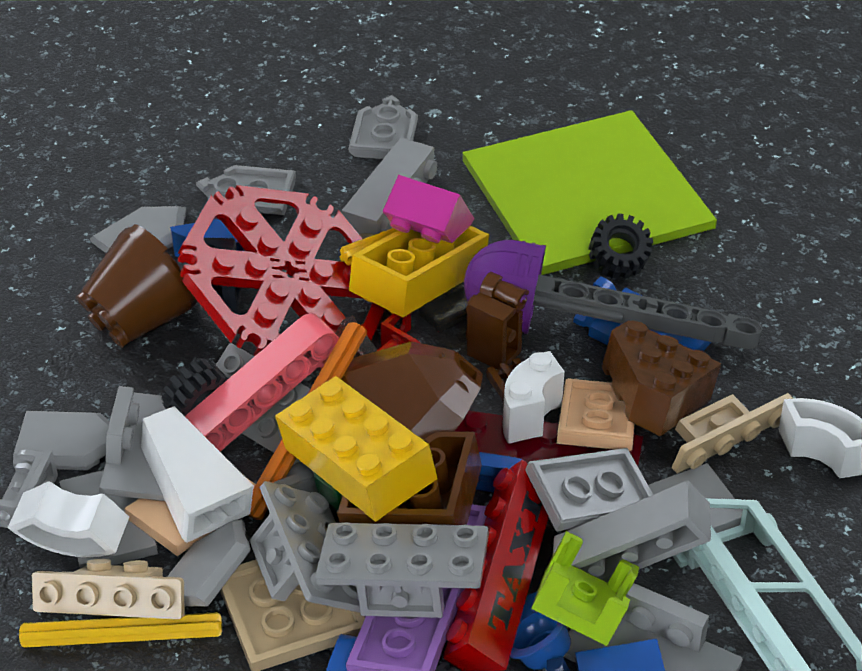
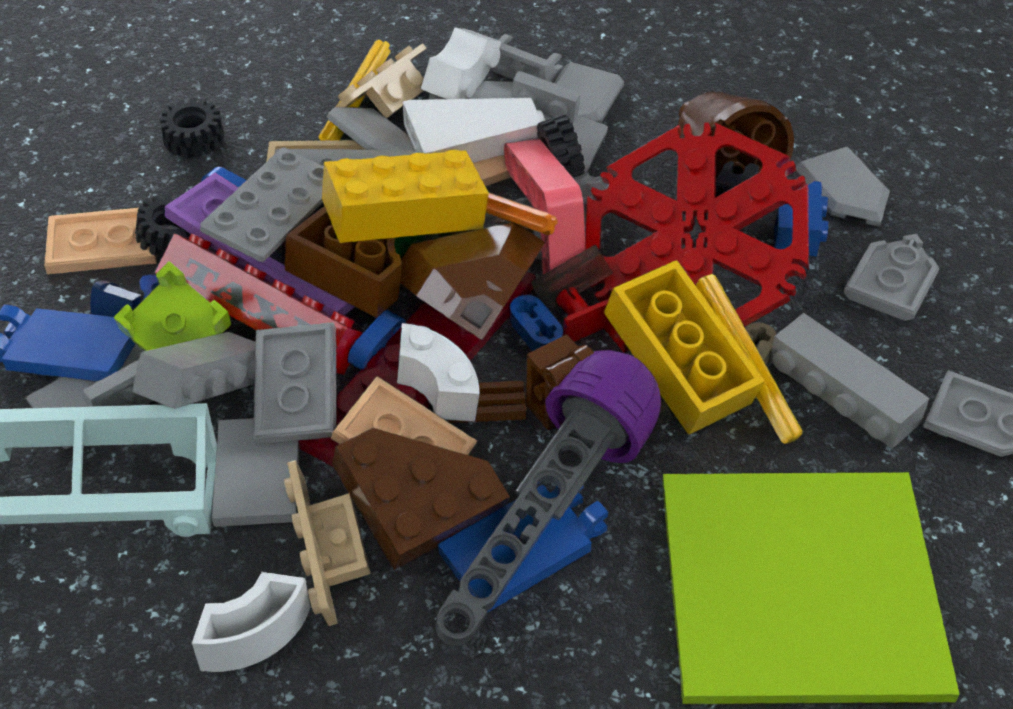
camera: 110 degrees right, 5 degrees up
(427, 210) = (731, 344): dark pink slope -> none
(624, 230) = (667, 573): black tyre -> none

